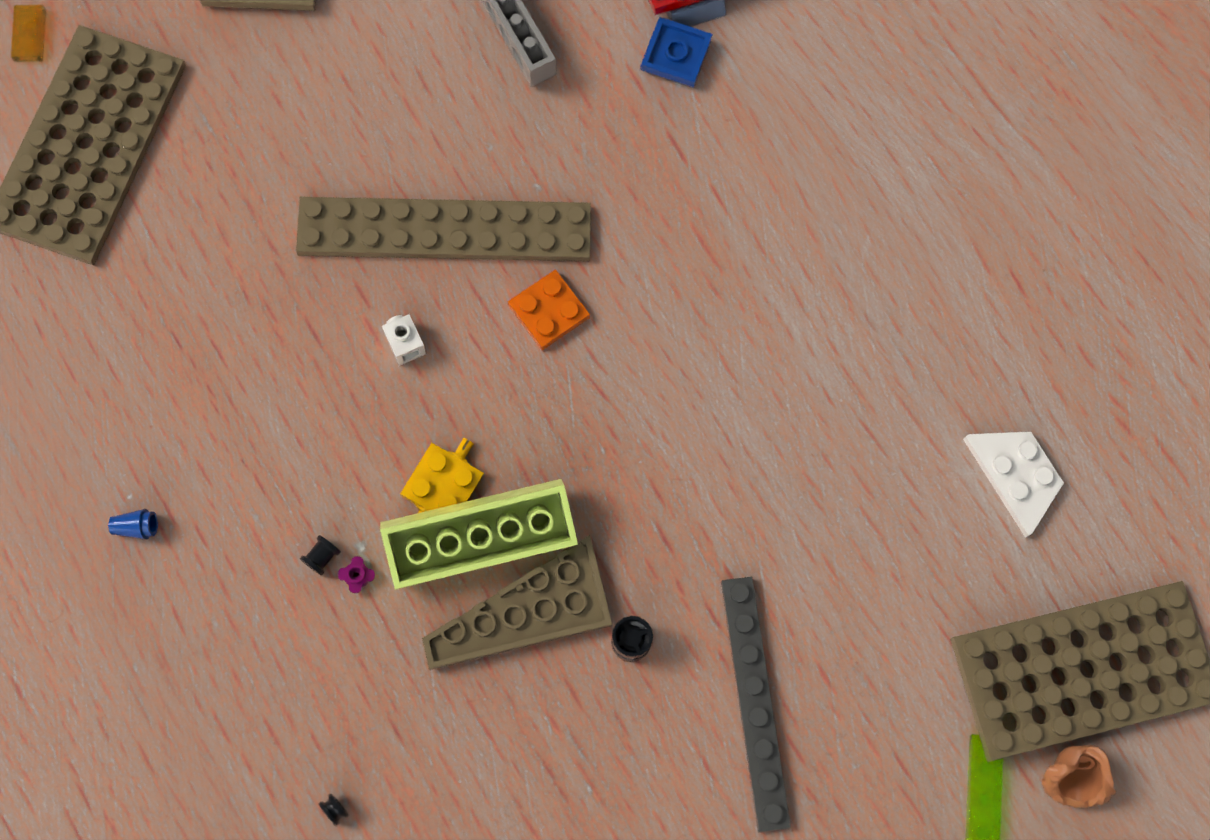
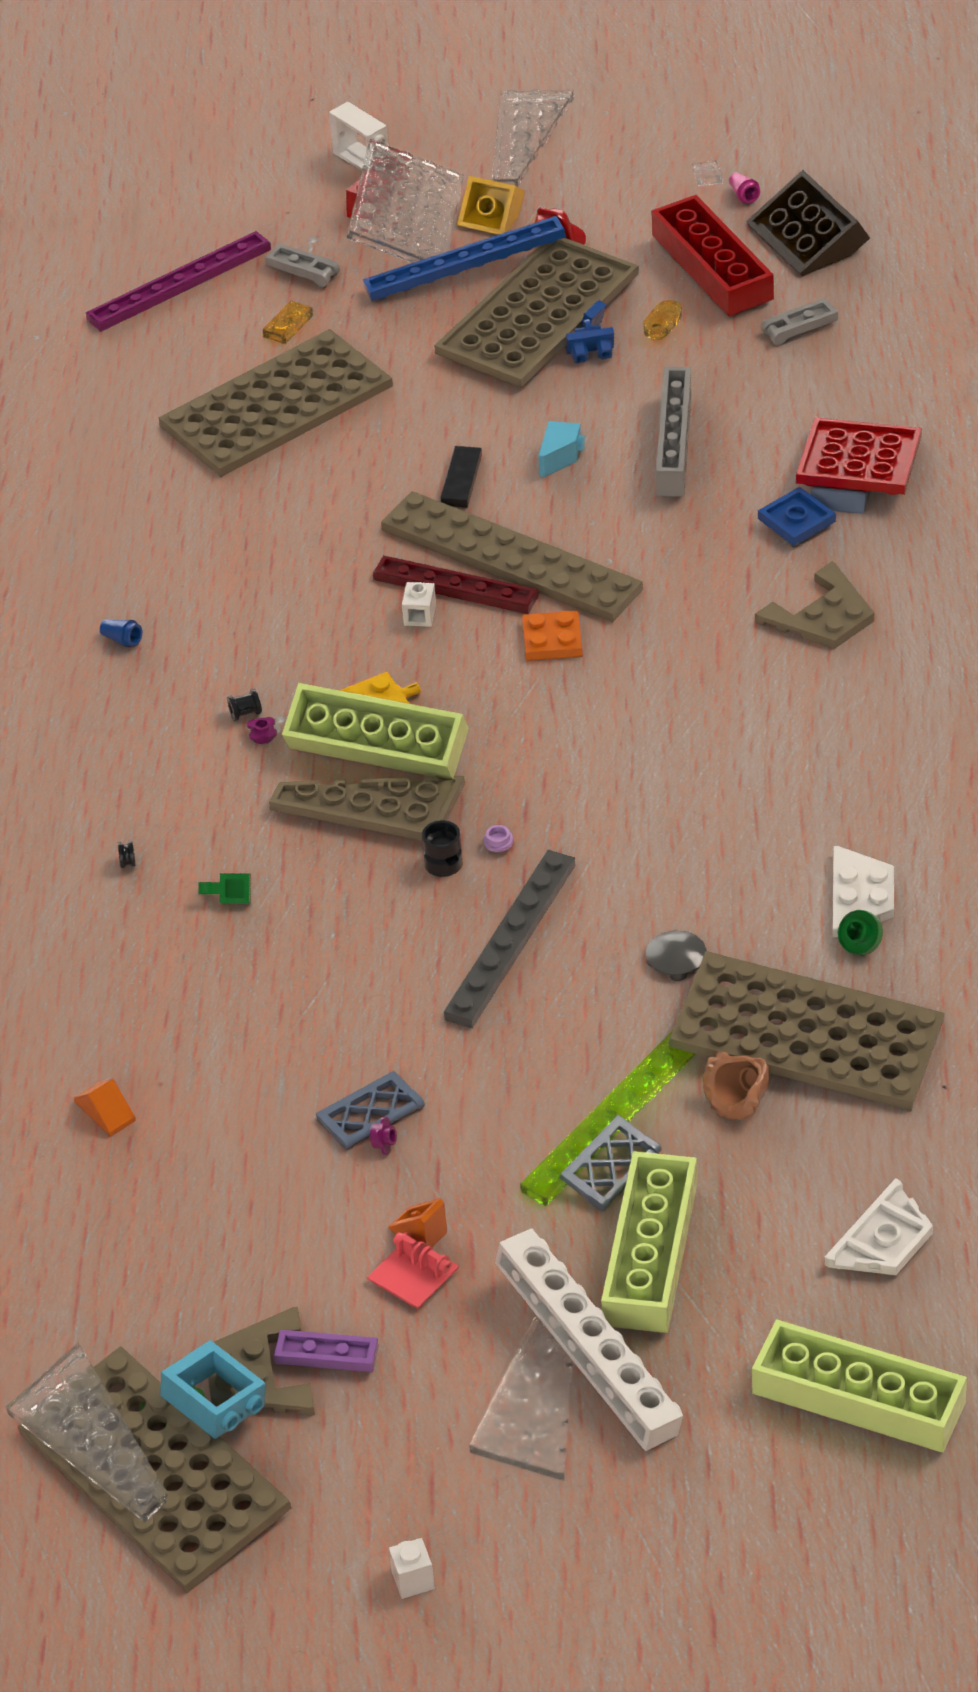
camera: 40 degrees right, 30 degrees down
(332, 152) = (461, 476): none -> black tile
(405, 71) = (560, 446): none -> medium azure slope
(415, 292) = (457, 584): none -> dark red tile
(463, 797) = (232, 887): none -> green plate
(667, 591) = (498, 838): none -> lavender plate
(783, 155) = (828, 619): none -> dark tan wing
(912, 638) = (675, 953): none -> dark grey dish
(1059, 530) = (860, 932): none -> green plate

